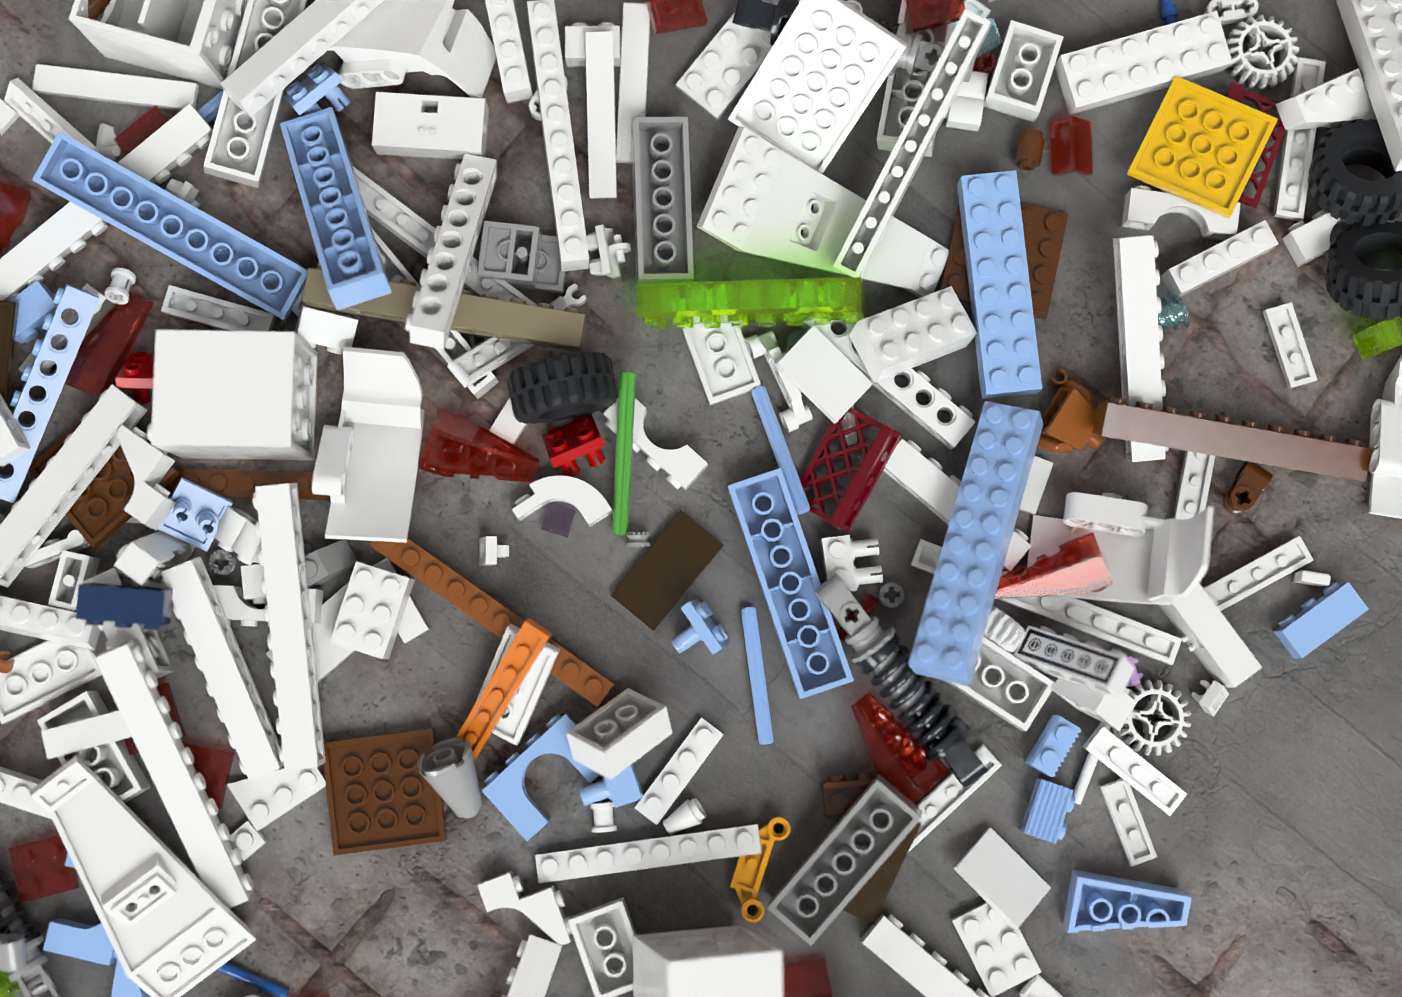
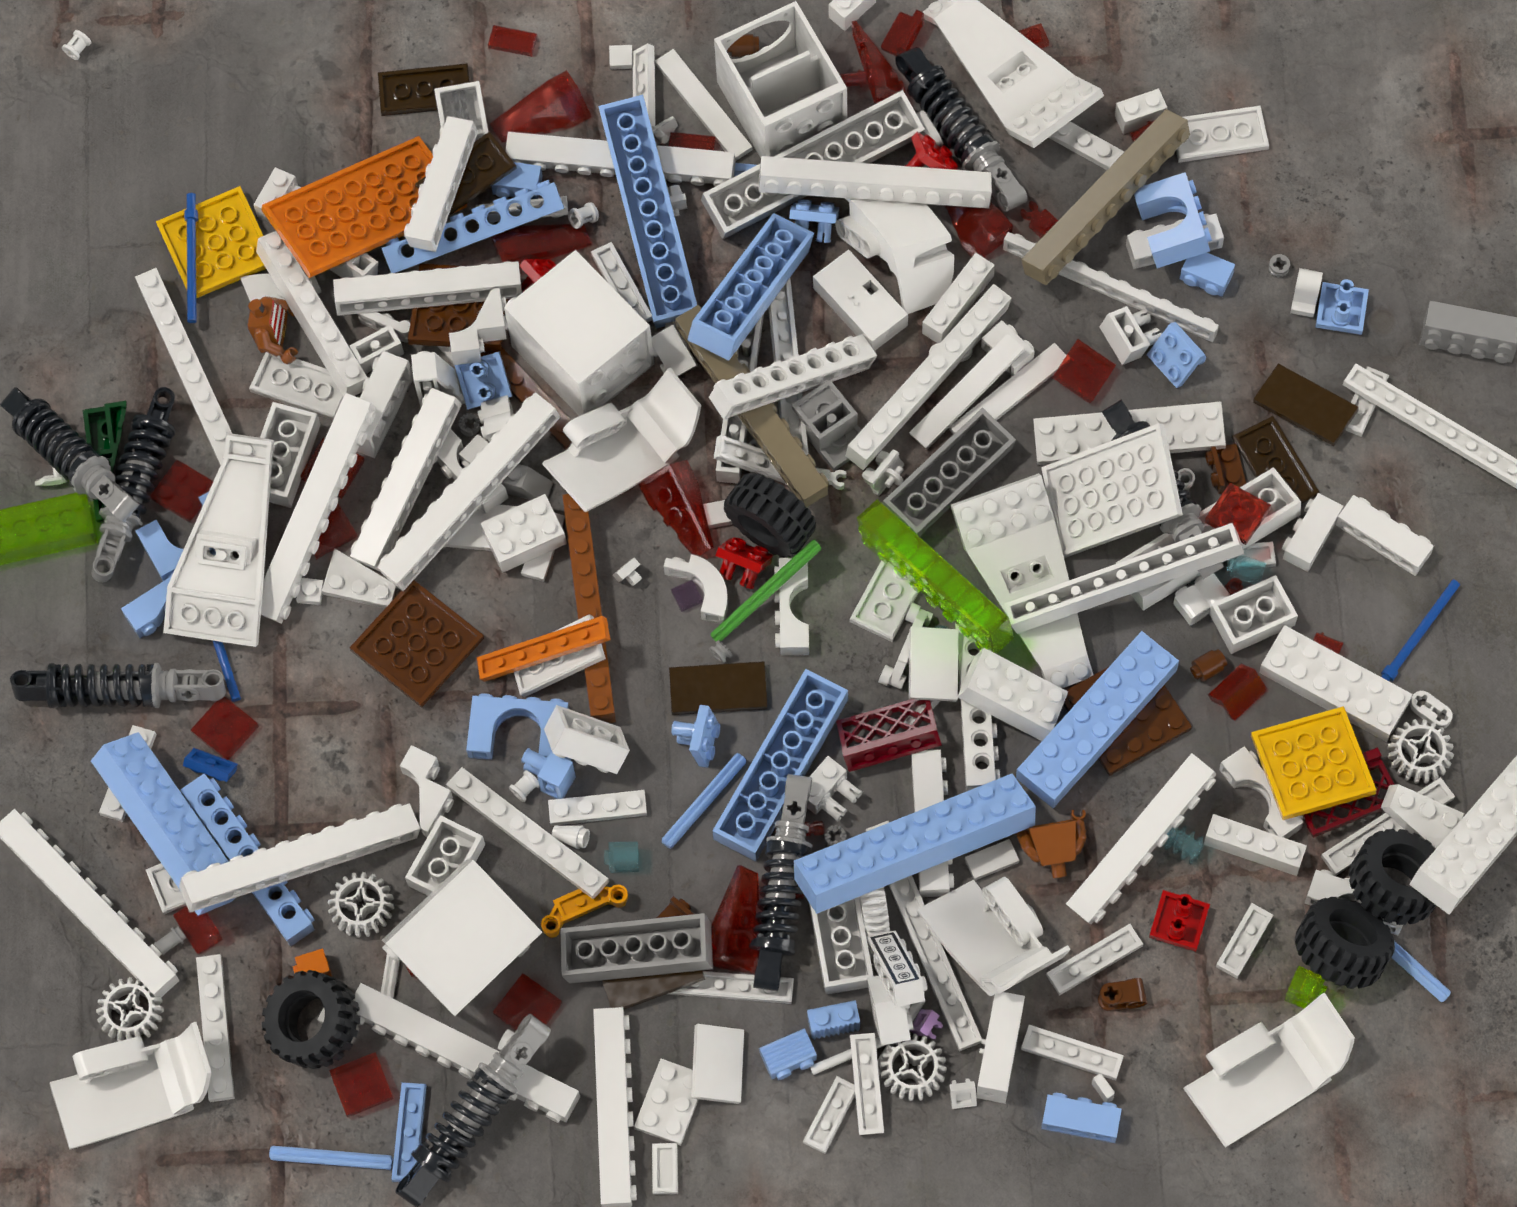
camera: 50 degrees right, 15 degrees down
(85, 734) = (290, 435): white tile -> none
(124, 605) = (391, 384): dark blue brick -> none
(453, 775) = (465, 672): light grey cone -> none
(745, 791) = (622, 857): none -> clear light blue brick
(780, 449) = (861, 685): light blue axle -> none
(1072, 570) = (962, 926): clear red wedge -> none
(1099, 36) = (1328, 642): none -> clear red pin
(1113, 902) = (768, 1146): light blue wedge -> none
(1225, 381) = (1179, 920): none -> red plate
(1232, 440) = (1139, 949): brick -> none

